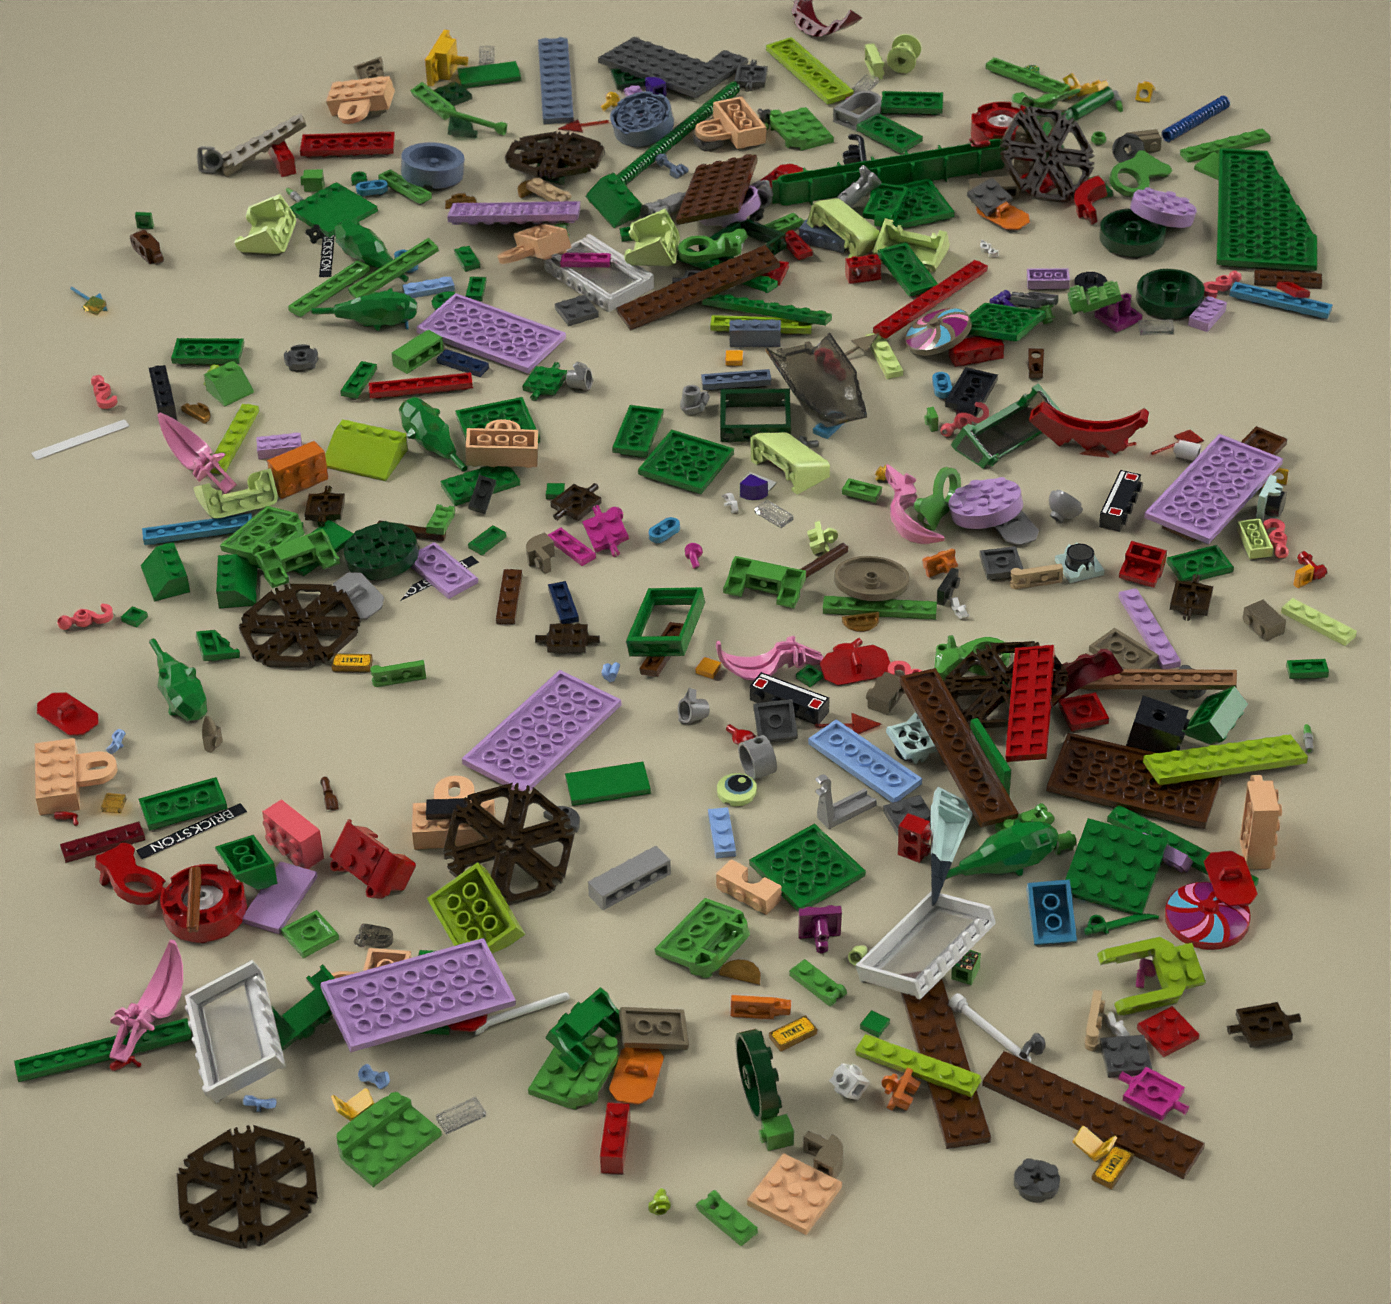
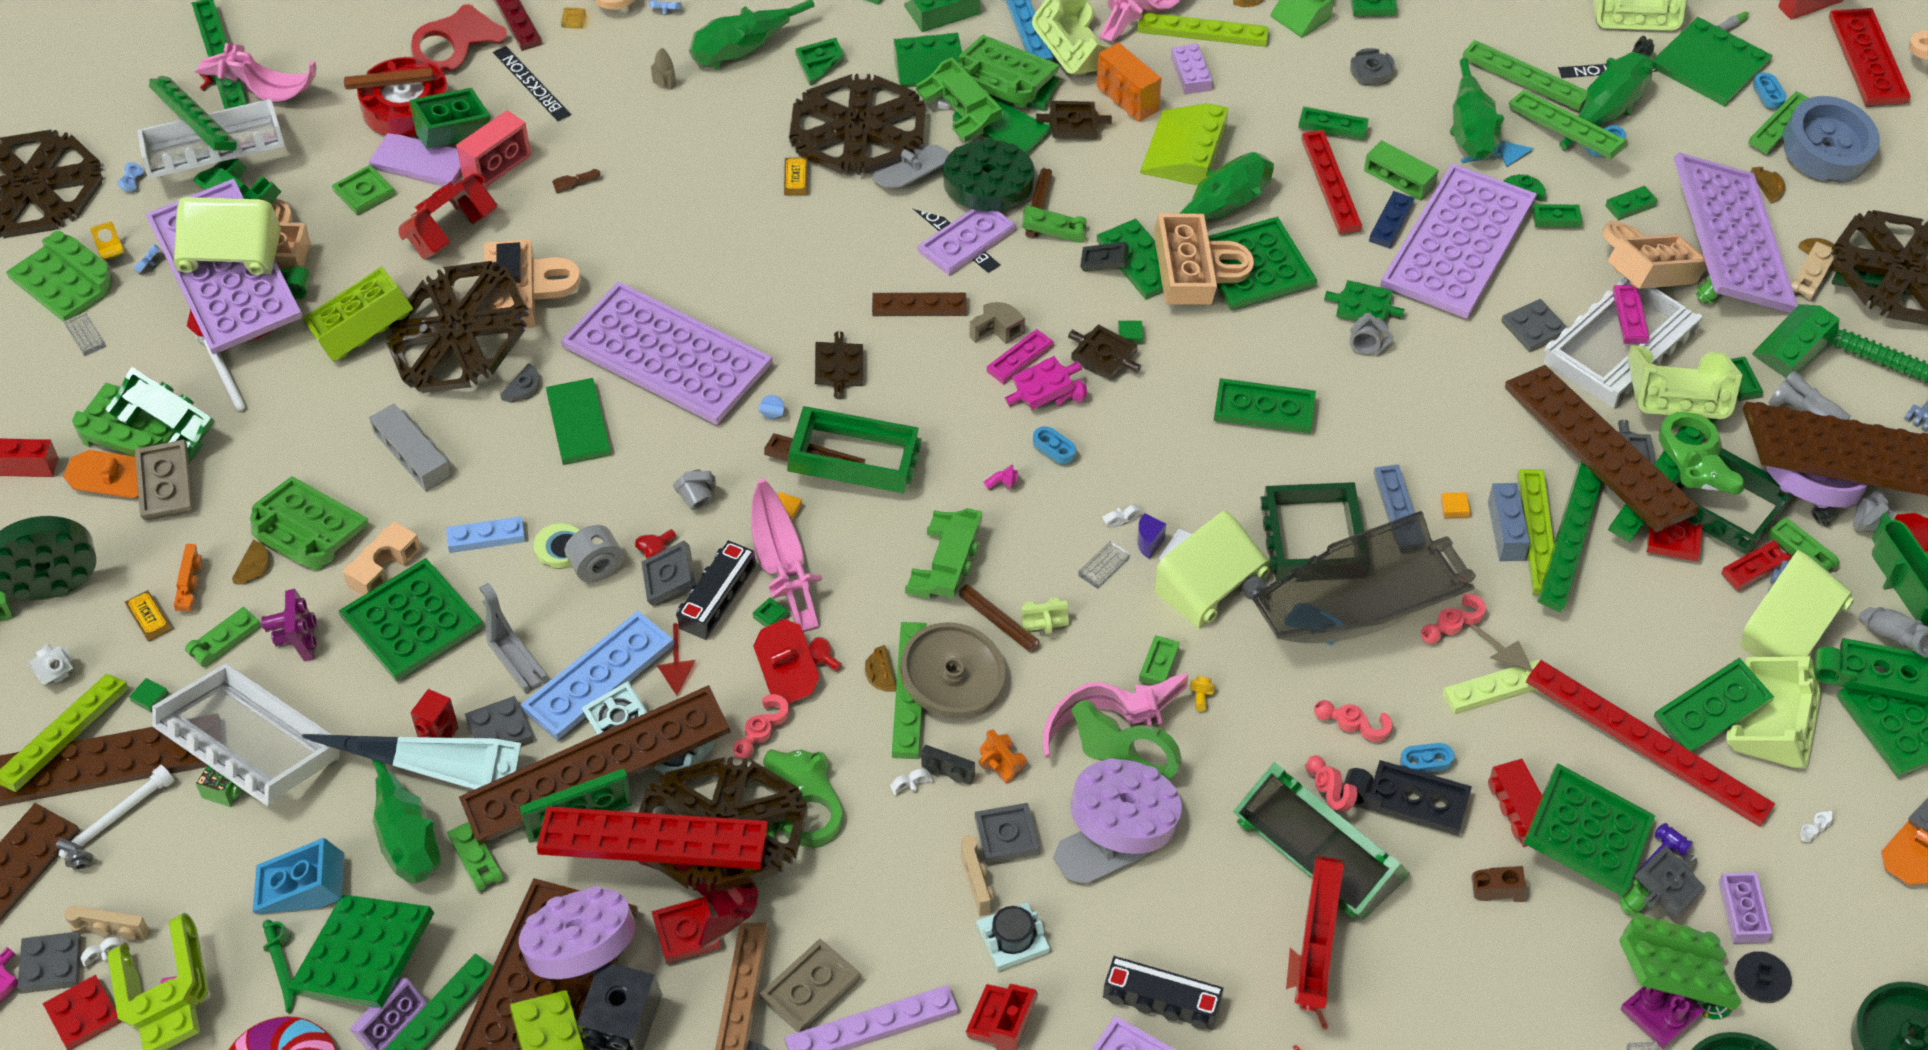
camera: 85 degrees right, 10 degrees up
(182, 803) = (565, 67): green plate -> none
(195, 1046) = (192, 114): none -> green plate
(312, 180) = (1767, 32): bright green brick -> none
(358, 177) = (1793, 78): green tile -> none
(380, 936) = (348, 238): clear smoke plate -> none
(398, 673) = (770, 214): bright green plate -> none
(404, 976) = (226, 233): none -> yellowish green windscreen
(428, 287) = (1554, 171): light blue plate -> none
(487, 540) = (1027, 275): green tile -> none
(563, 603) = (903, 353): dark blue plate -> none
(686, 461) = (1203, 461): green plate -> none
(693, 400) = (1339, 460): light grey piece -> none
(857, 954) = (259, 674): yellowish green hose -> none
(863, 269) = (1704, 648): red brick -> none
(885, 693) = (733, 695): dark tan brick -> none
(906, 1083) = (21, 716): orange hips -> none
(911, 412) = (1351, 718): none -> coral piece
(931, 419) = (1335, 744): bright green plate -> none
(938, 331) = (1548, 745): dish -> none
(1064, 506) = (1135, 911): light grey piece -> none
(1065, 841) = (427, 893): bright green brick -> none
(1107, 740) = (577, 933): none -> lavender piece

